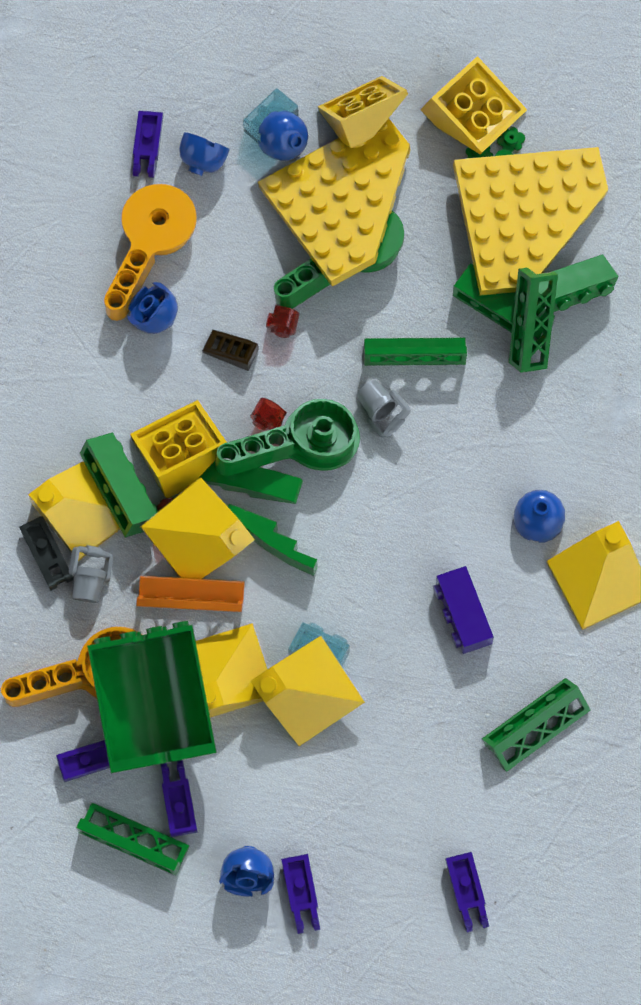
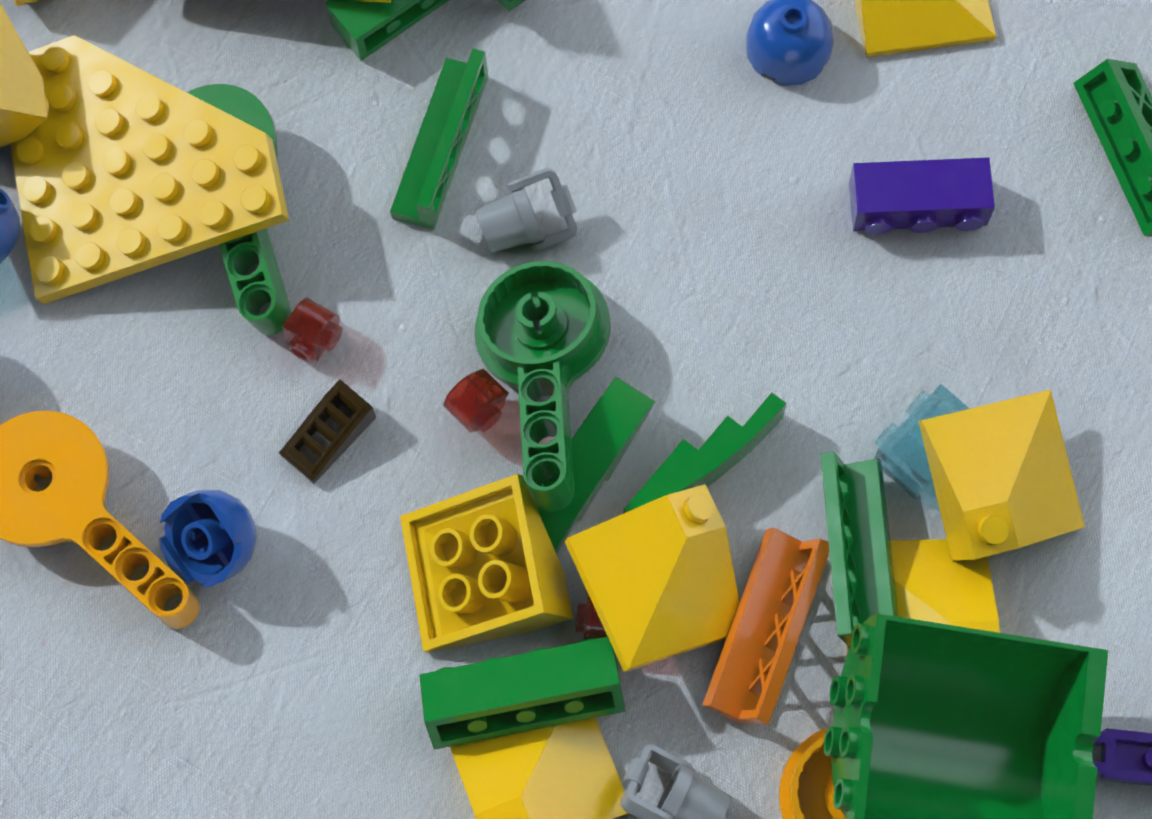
camera: 70 degrees left, 0 degrees up
(245, 631) = (858, 542): none -> green fence

